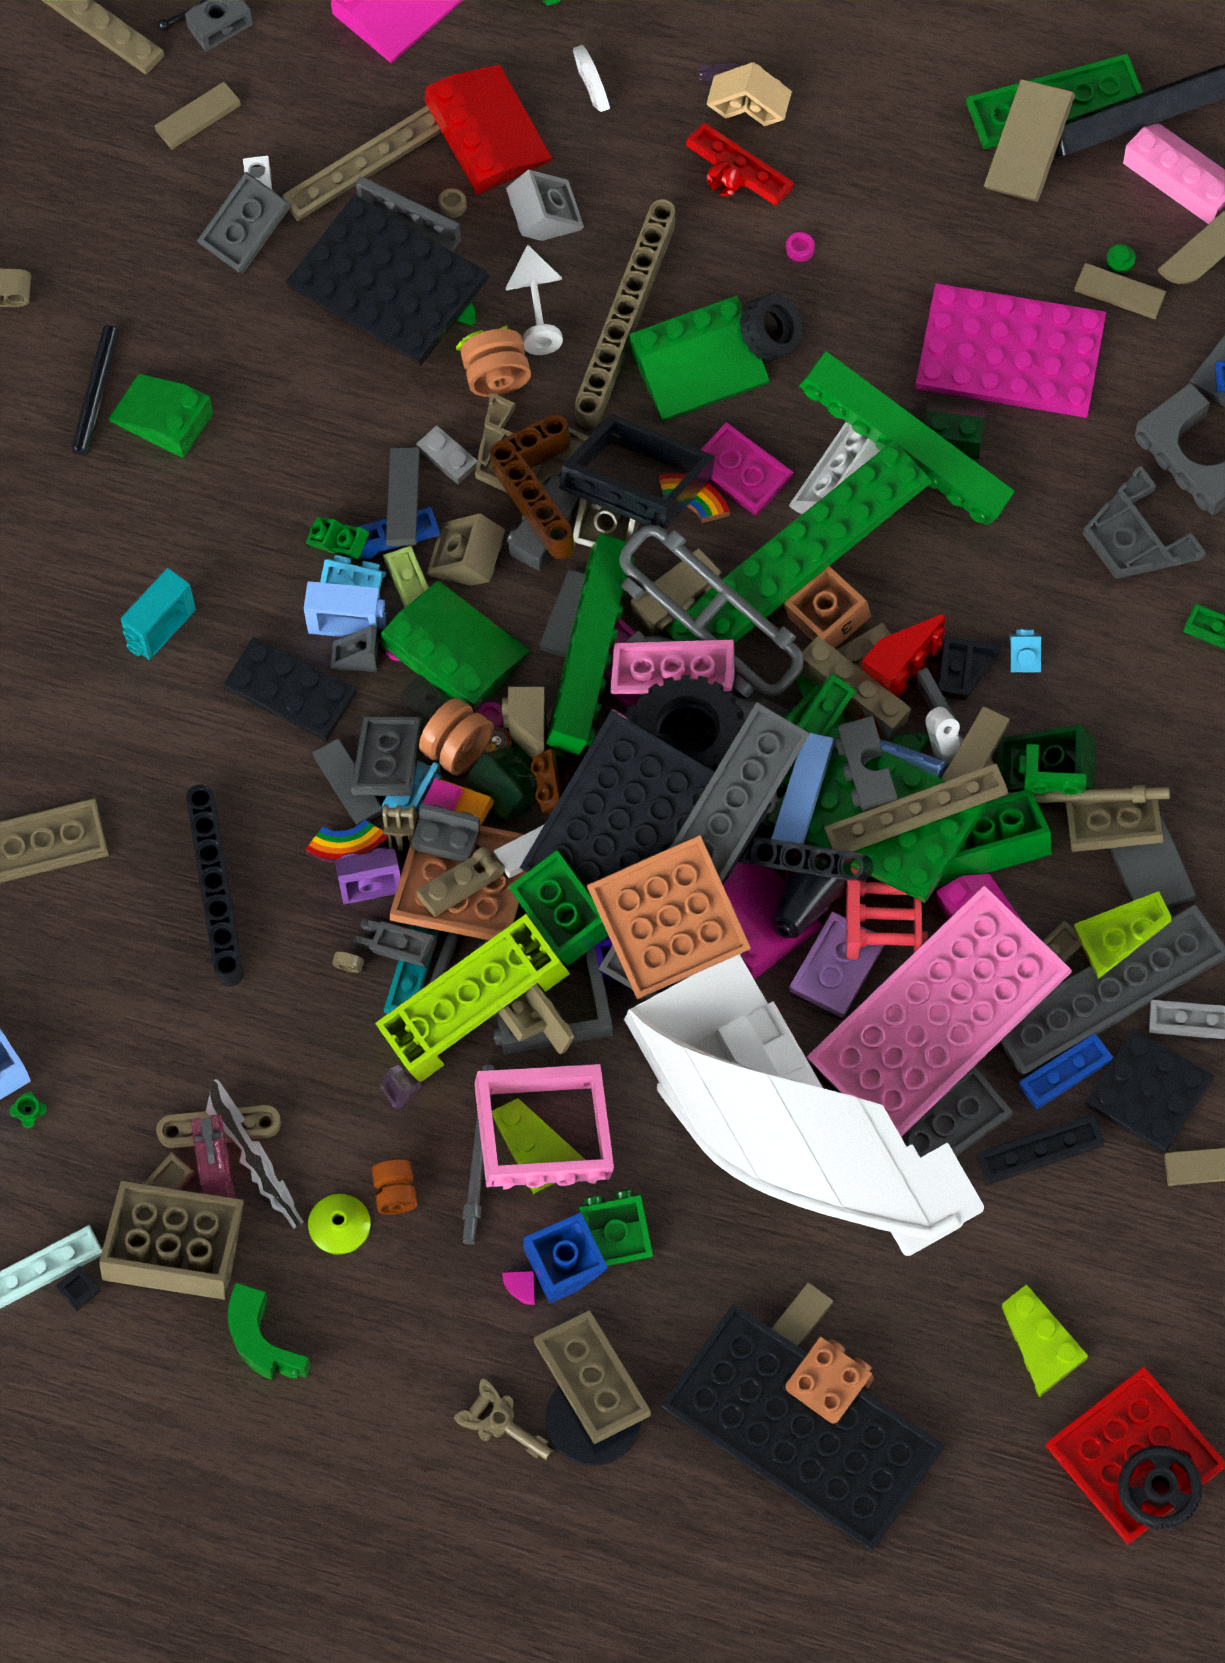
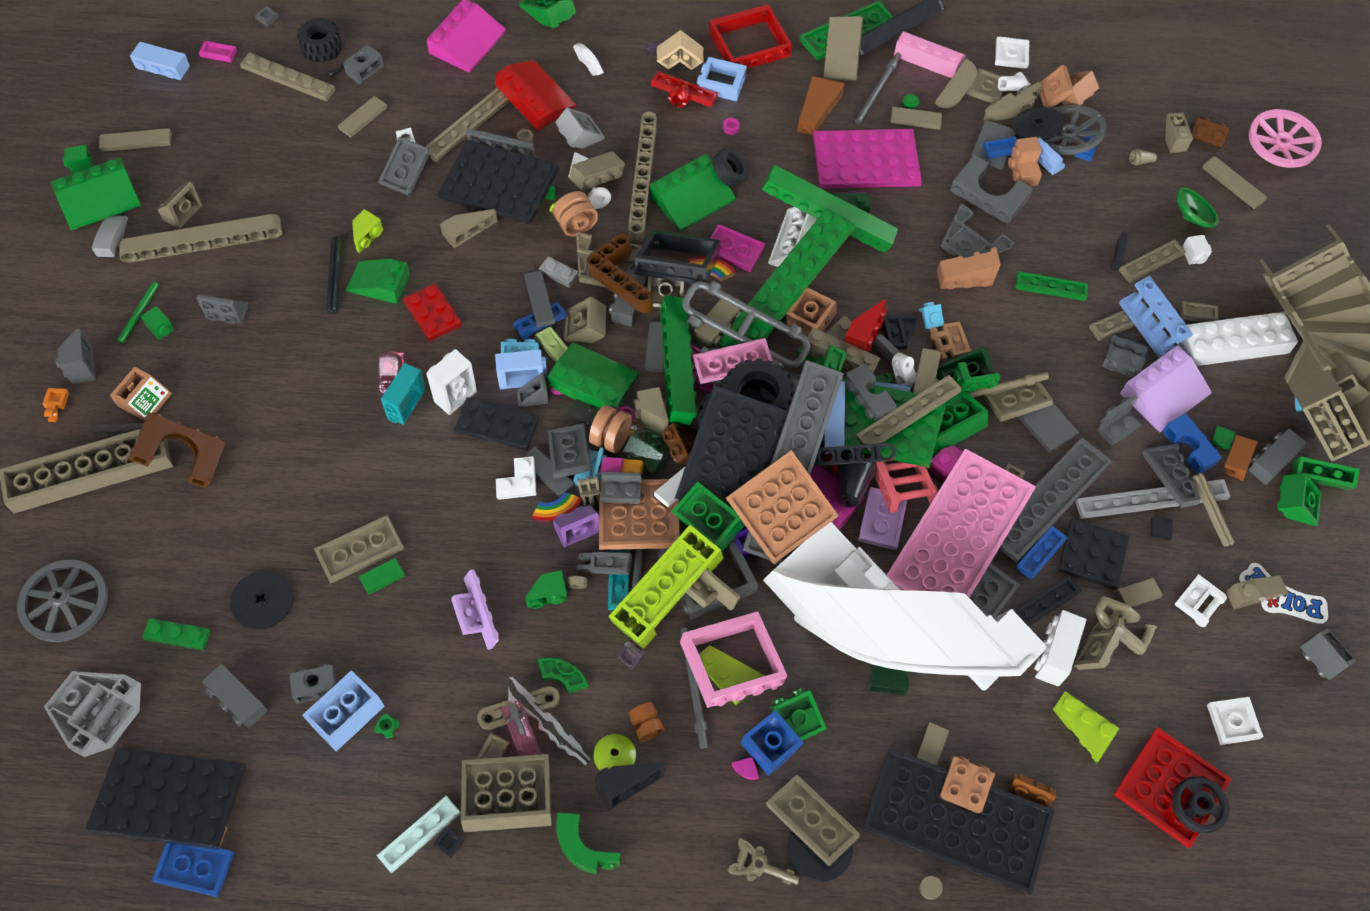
camera: 20 degrees left, 5 degrees down
(67, 890) = (381, 576): none -> green tile
(147, 564) = (389, 366): none -> clear pink slope
(159, 322) = (366, 229): none -> lime slope
(186, 974) = (473, 611): none -> lavender bracket
(219, 897) = (481, 560): black beam -> none
(233, 484) = (432, 312): none -> red plate
(233, 611) = (451, 381): none -> white brick
(294, 1089) = (563, 672): none -> green tile
(301, 963) = (547, 590): none -> green slope
(303, 794) = (522, 484): none -> white plate
(315, 348) = (465, 226): none -> dark tan slope
(337, 538) = (501, 329): green slope -> none
(342, 1263) = (625, 781): none -> black slope
(460, 882) = (638, 516): dark tan plate -> none
(550, 291) = (596, 170): none -> dark tan brick
(734, 1508) = (930, 887): none -> dark tan tile
(763, 1210) = (888, 680): none -> clear green torso
(816, 185) = (724, 67): none -> light blue window
(875, 49) = (745, 19): none -> red window
(936, 1422) = (1023, 787): none -> dark orange hinge
(959, 233) = (819, 102): none -> dark orange slope
(1035, 1218) = (1061, 648): none -> white brick
(1050, 700) = (955, 339): none -> medium nougat plate
(1108, 186) = (890, 67): none -> dark grey bar
(1108, 590) = (969, 271): none -> nougat wedge
(1121, 930) = (1046, 461): lime wing -> none
(1122, 1206) = (1108, 632): none -> dark tan plate

